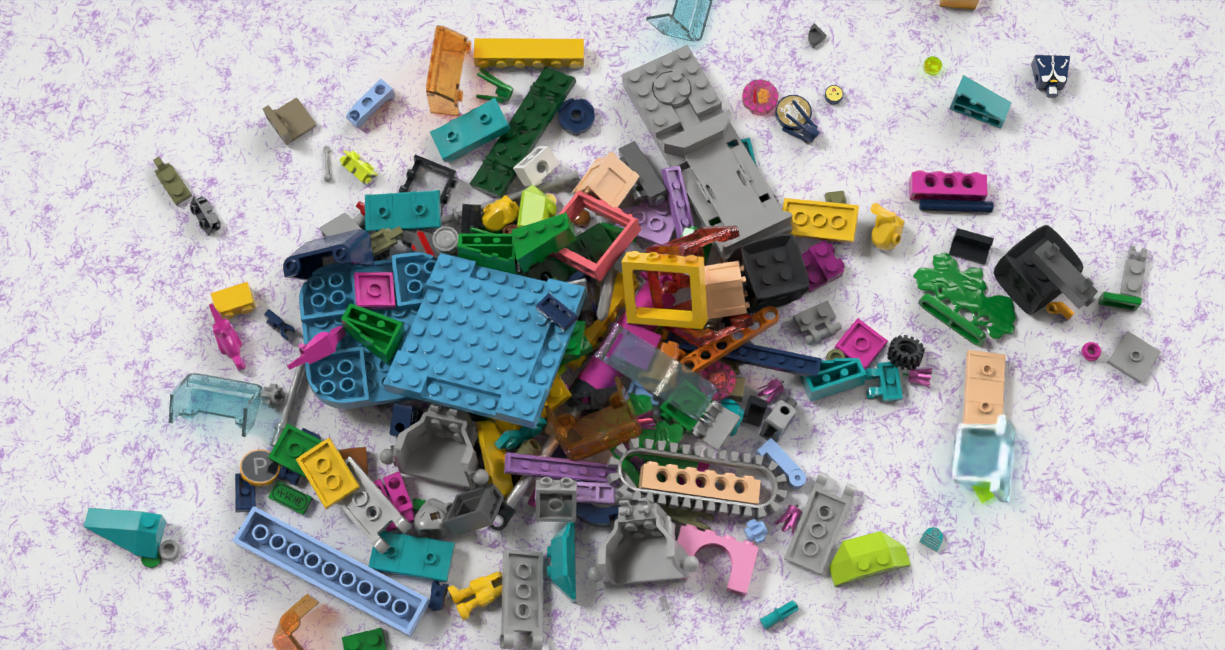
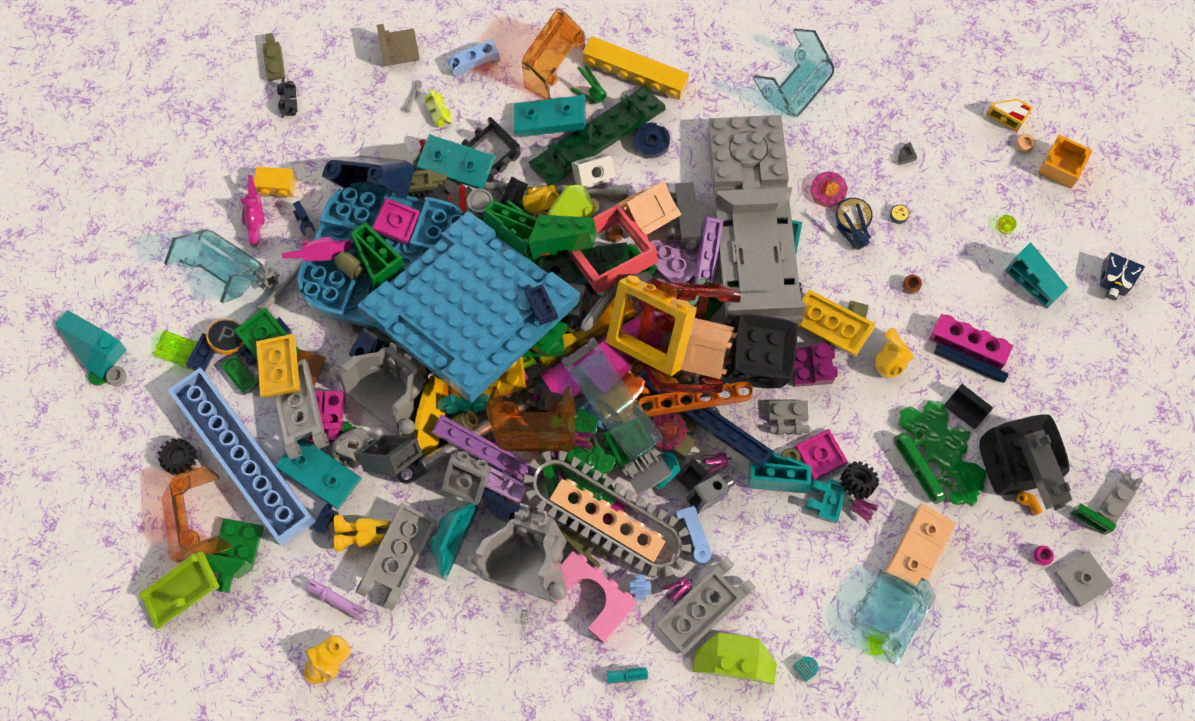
camera: 25 degrees right, 0 degrees up
(215, 500) = (174, 348): none -> clear neon green plate
(277, 608) = (167, 451): none -> black tyre
(353, 350) = (349, 265): none -> olive brick
(873, 155) = (912, 284): none -> dark orange tile

